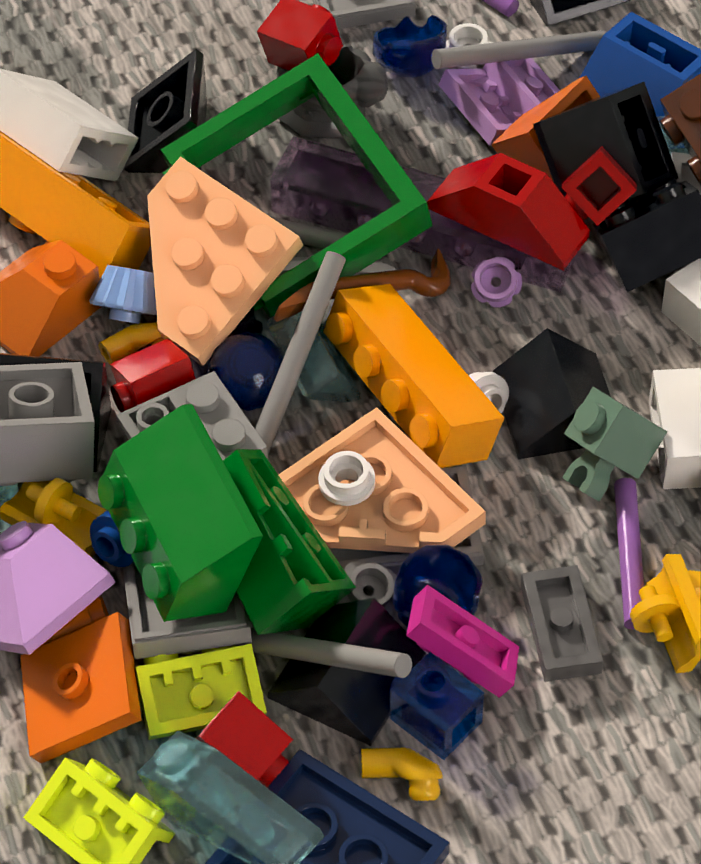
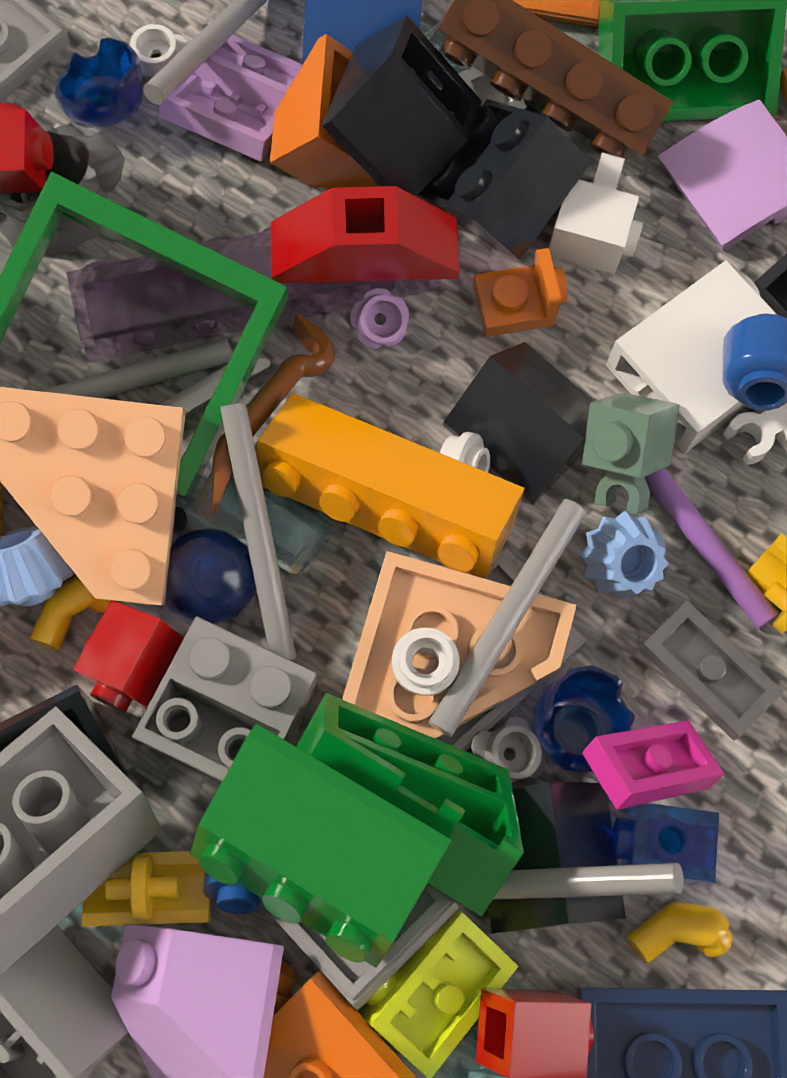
camera: 40 degrees left, 20 degrees up
(427, 486) = (507, 618): none -> light grey bar
(555, 517) = (624, 556): none -> light blue piece
(598, 187) = (438, 164): red brick -> none
(613, 322) = (520, 296): none -> orange bracket

